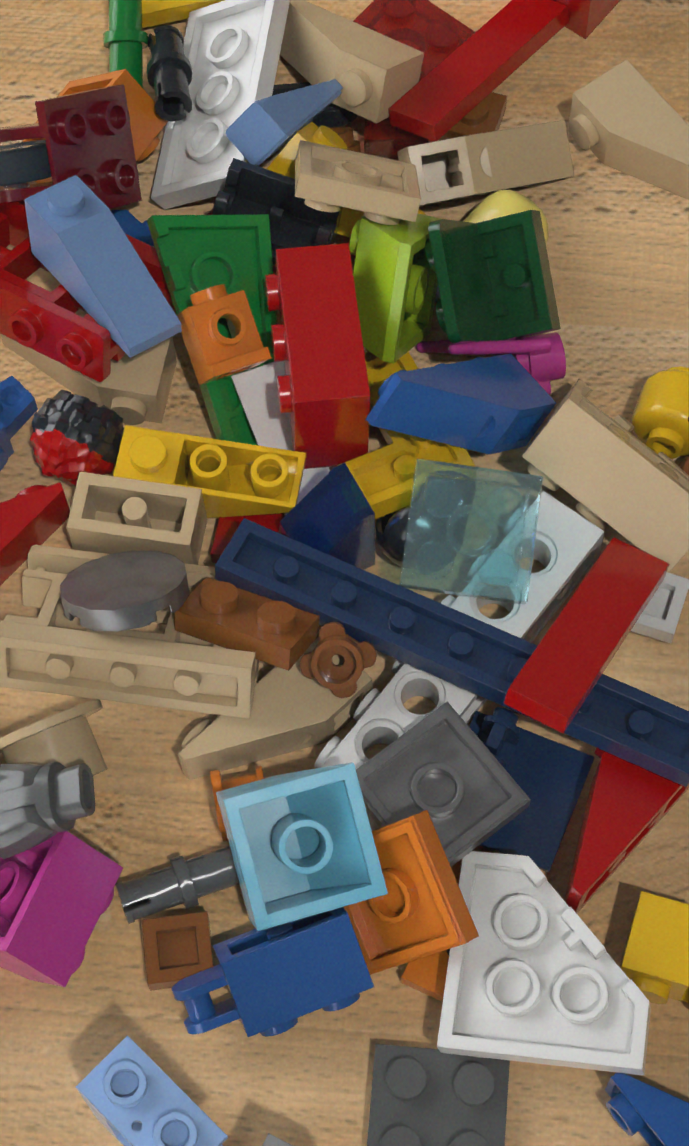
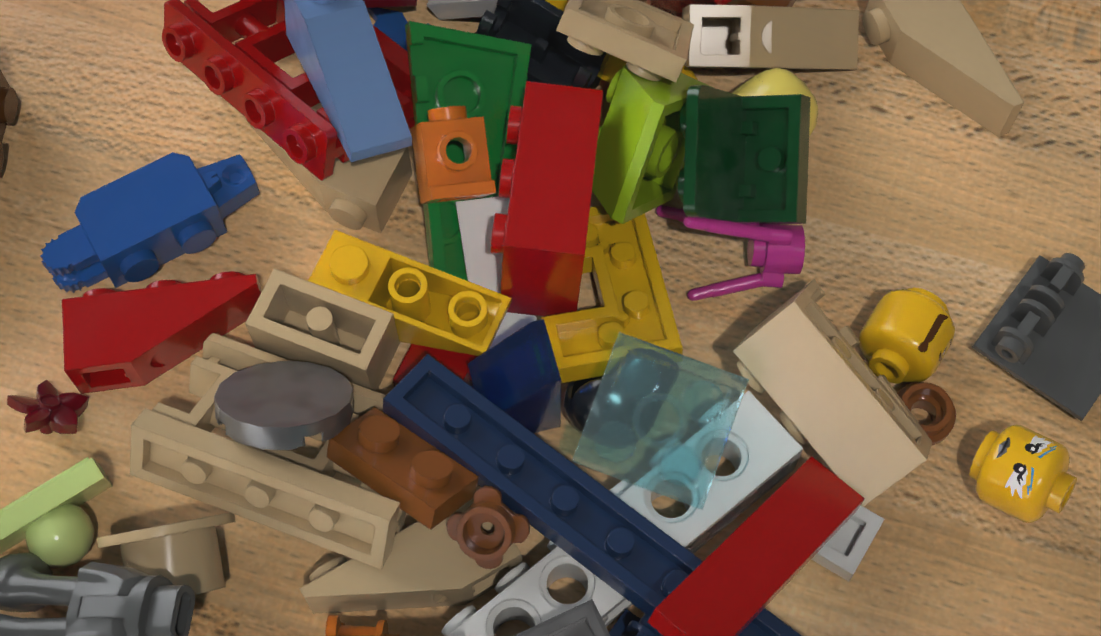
camera: 10 degrees right, 0 degrees up
(75, 437) = (284, 230): piece -> none
(465, 404) = (693, 284): blue slope -> none

